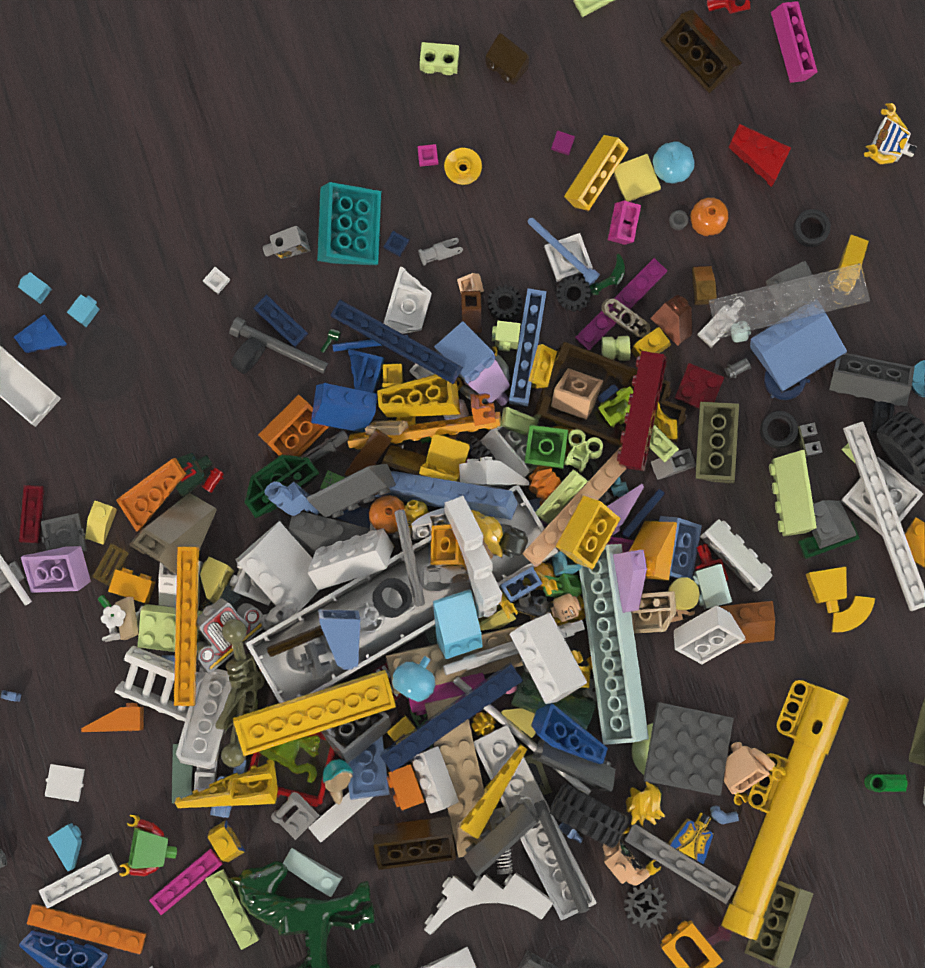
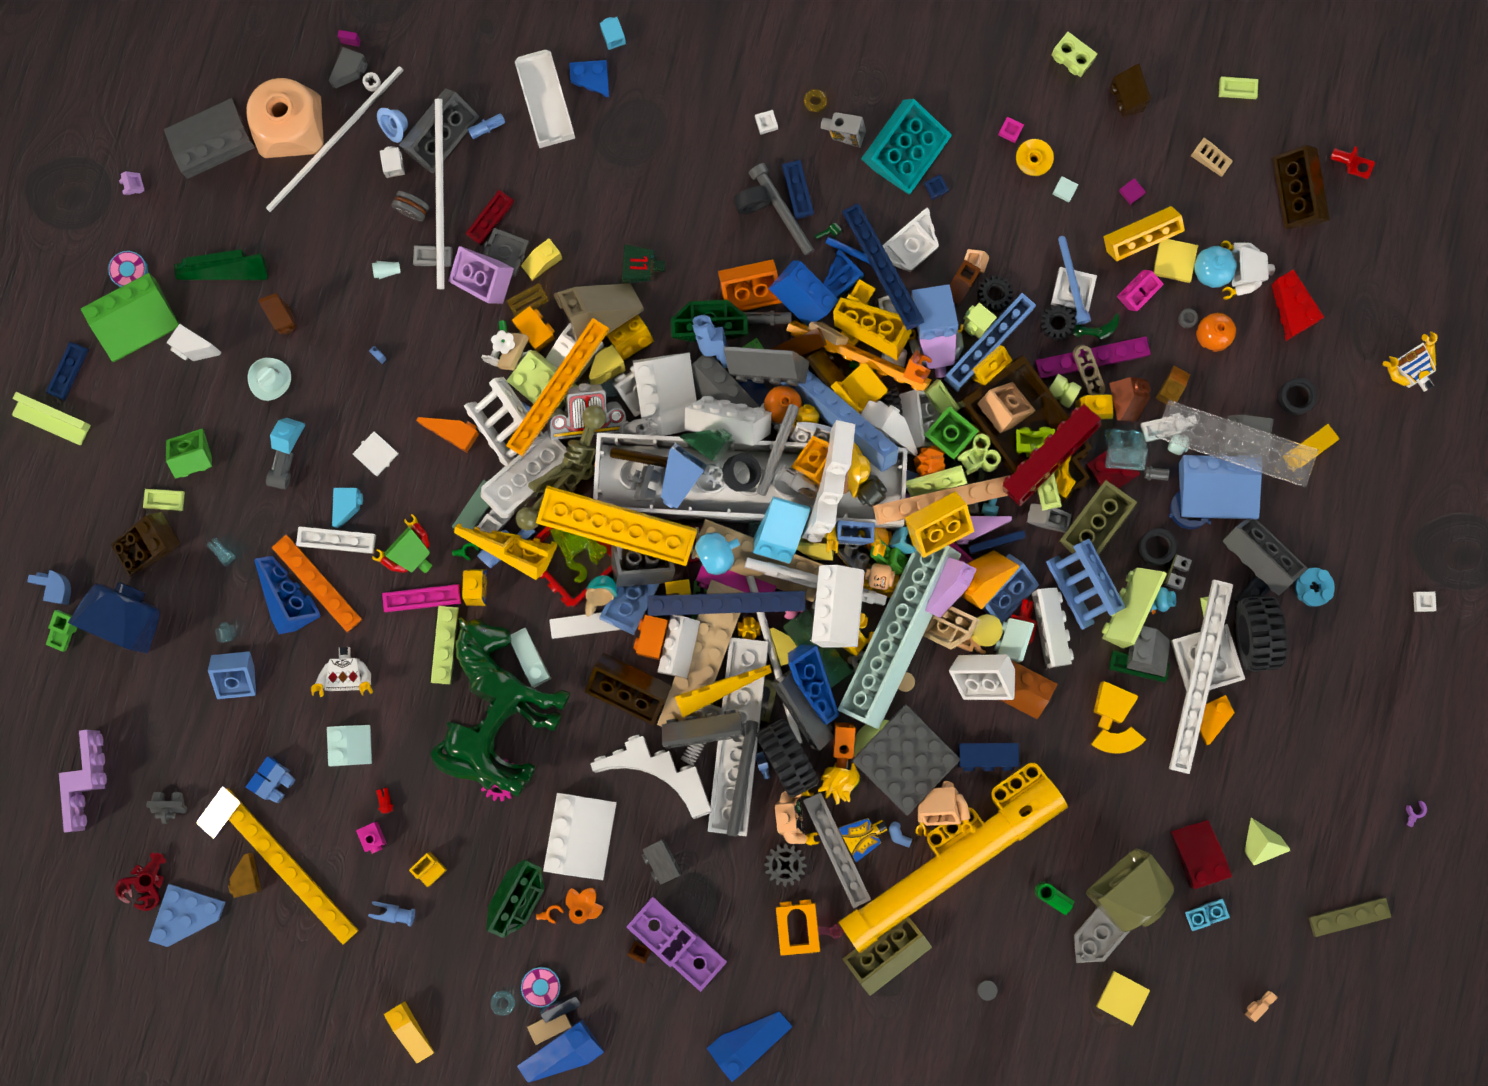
camera: 30 degrees right, 0 degrees up
(83, 310) = (641, 77): medium azure brick -> none
(150, 493) = (595, 262): orange wing -> none
(194, 819) = (462, 552): none -> green piece
(213, 479) = (656, 284): red pin -> none
(220, 540) = (630, 337): none -> yellow bracket
(246, 227) = (815, 93): none -> clear yellow piece
(299, 820) = (546, 608): light grey plate -> none
(348, 591) = (710, 442): none -> clear green slope
(439, 251) = (968, 216): light grey piece -> none
(505, 176) = (1065, 189): none -> light aqua tile
(607, 393) = (1032, 423): dark blue tile -> none
(609, 78) = (1215, 153): none -> tan slope
(624, 763) = (843, 735): none -> orange torso
(646, 681) = (907, 682): none -> tan tile
(699, 364) = (1126, 449): none -> clear light blue bracket
(704, 145) = (1251, 268): none -> white torso
(747, 487) = (1102, 584): none -> medium blue fence
(754, 699) = (988, 756): none -> dark blue brick
(794, 41) = (1386, 230): dark pink brick -> none
(815, 470) = (1163, 600): none -> medium azure animal
(882, 898) = (987, 990): none -> dark grey tile

